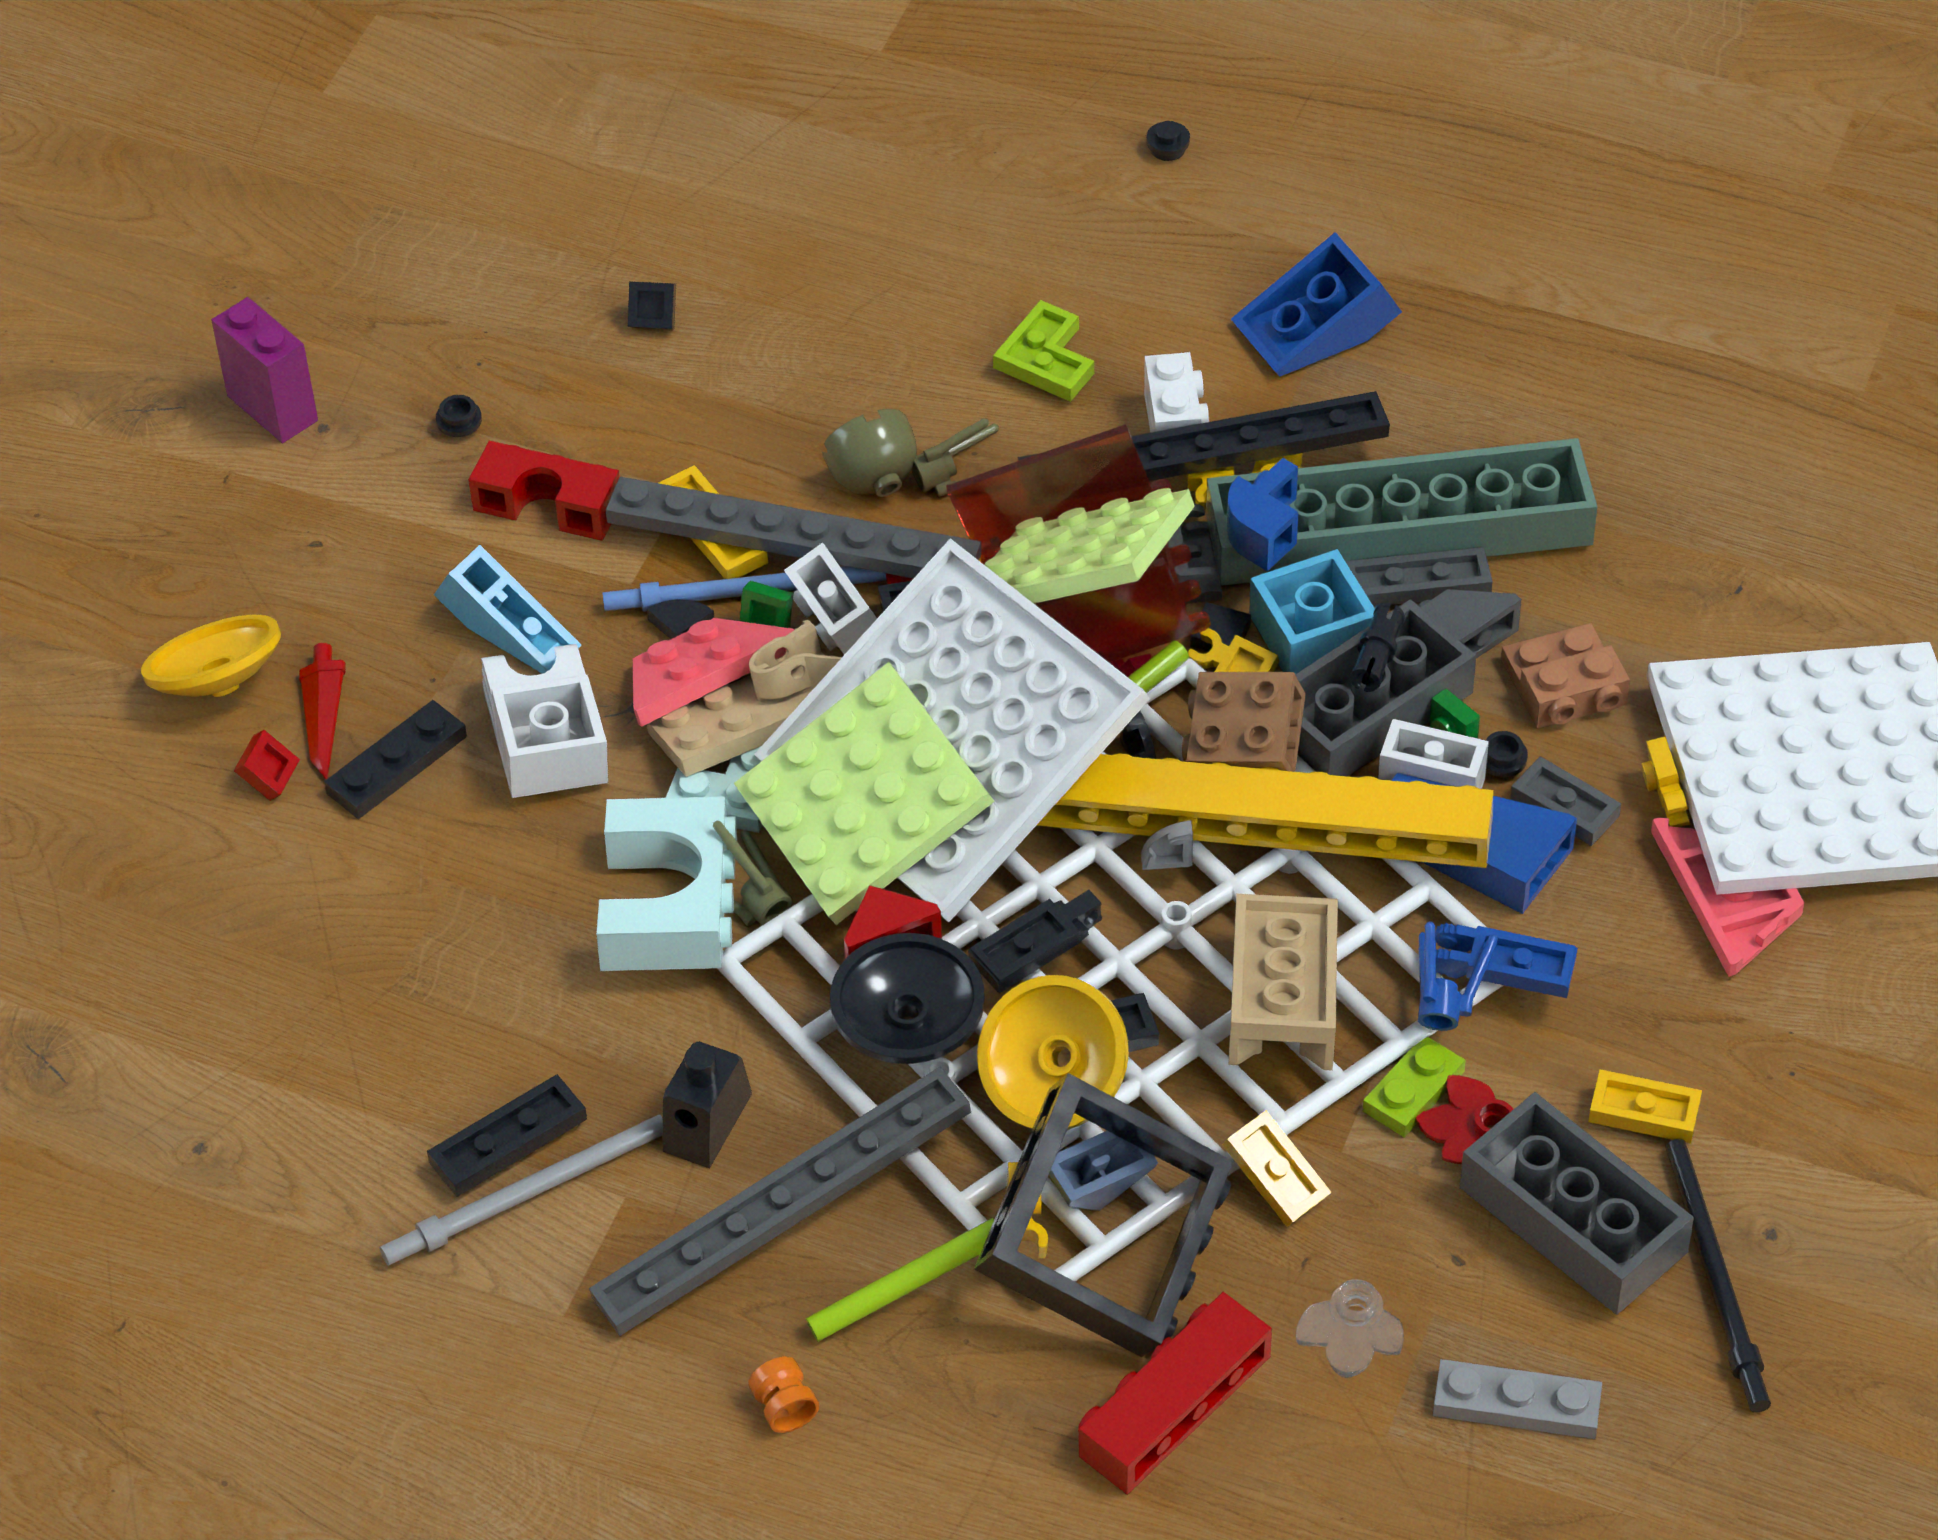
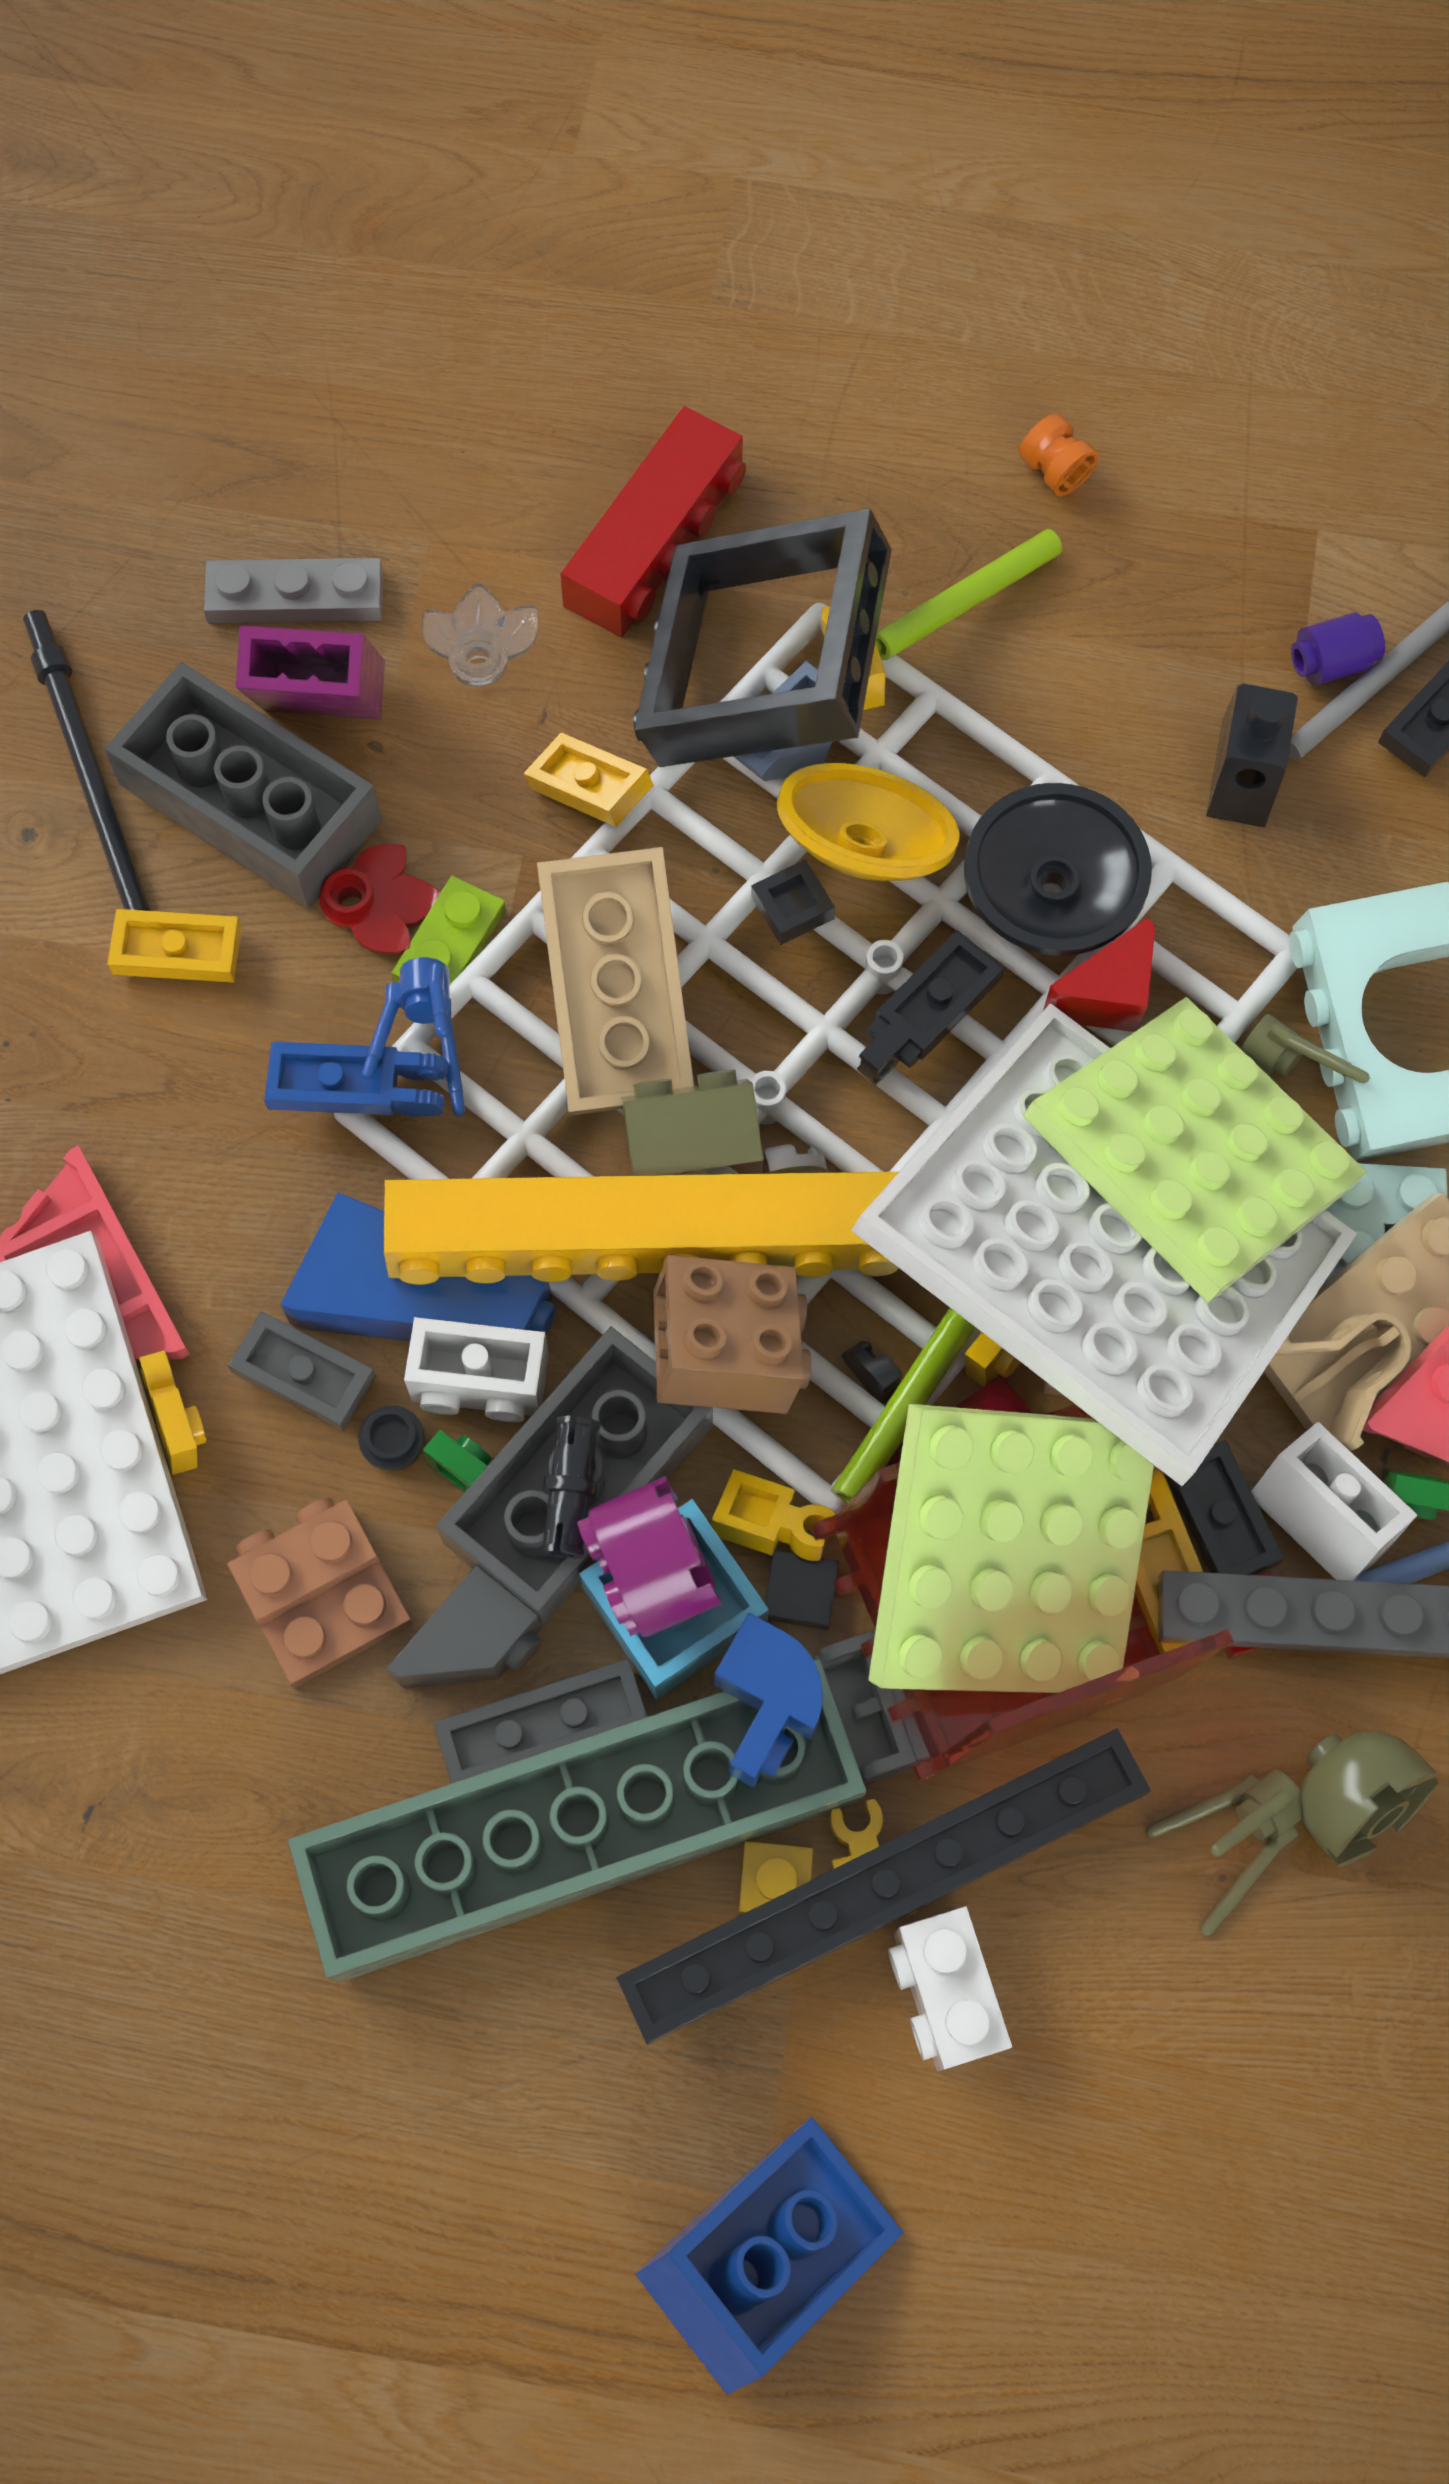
camera: 165 degrees right, 20 degrees up
(595, 1185) = (1338, 647): none -> dark purple brick
(779, 1201) = (1121, 650): dark grey plate -> none
(1038, 353) = (1189, 2081): lime plate -> none
(1245, 861) = (691, 1125): none -> olive brick
(1329, 579) = (652, 1559): none -> magenta brick
(1506, 1257) = (310, 672): none -> magenta brick

